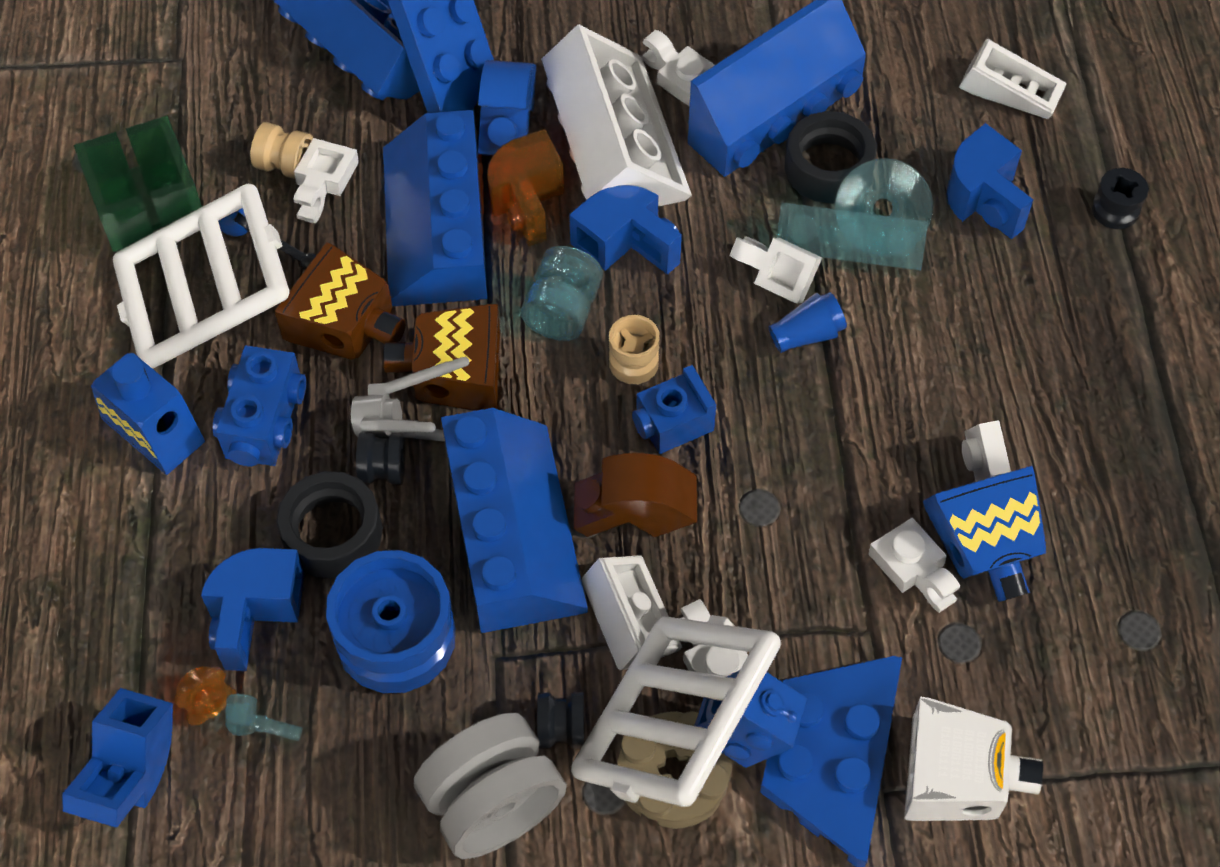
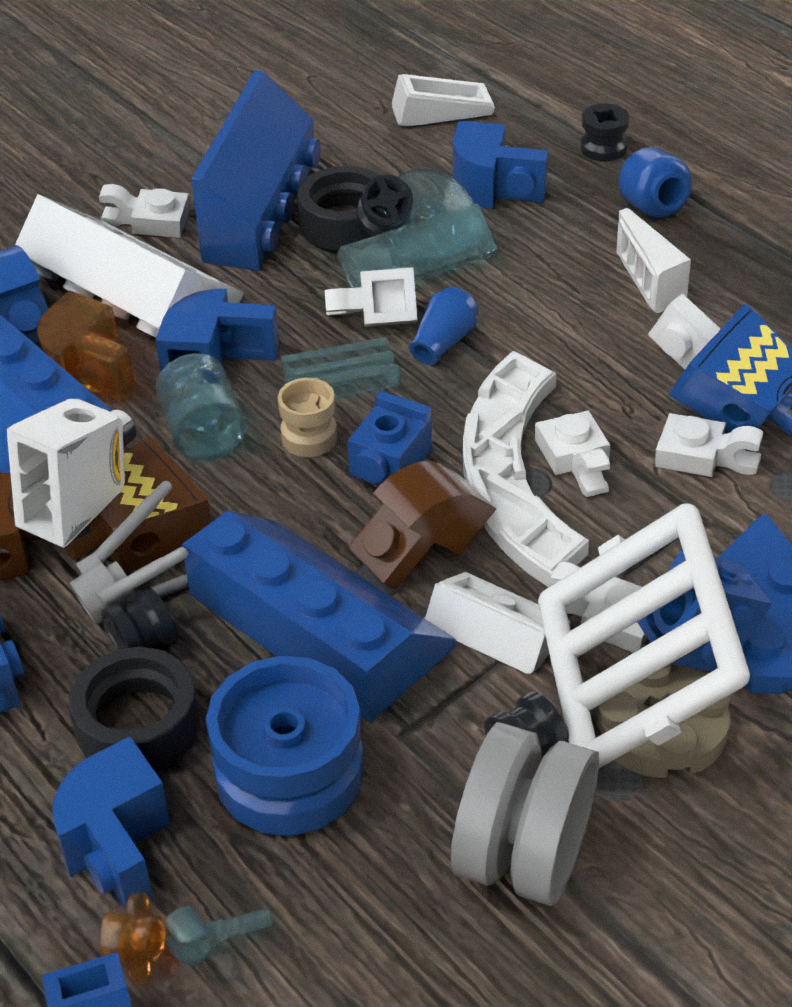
camera: 35 degrees left, 15 degrees down
(403, 306) = (66, 467): none -> white torso
(703, 310) = (346, 367): none -> clear light blue tile
(744, 475) = (495, 468): none -> white tile
(815, 500) = (577, 446): none -> white plate
(834, 175) = (390, 195): none -> black wheel
(1030, 371) = (652, 261): none -> white slope
(1109, 280) = (655, 182): none -> blue head

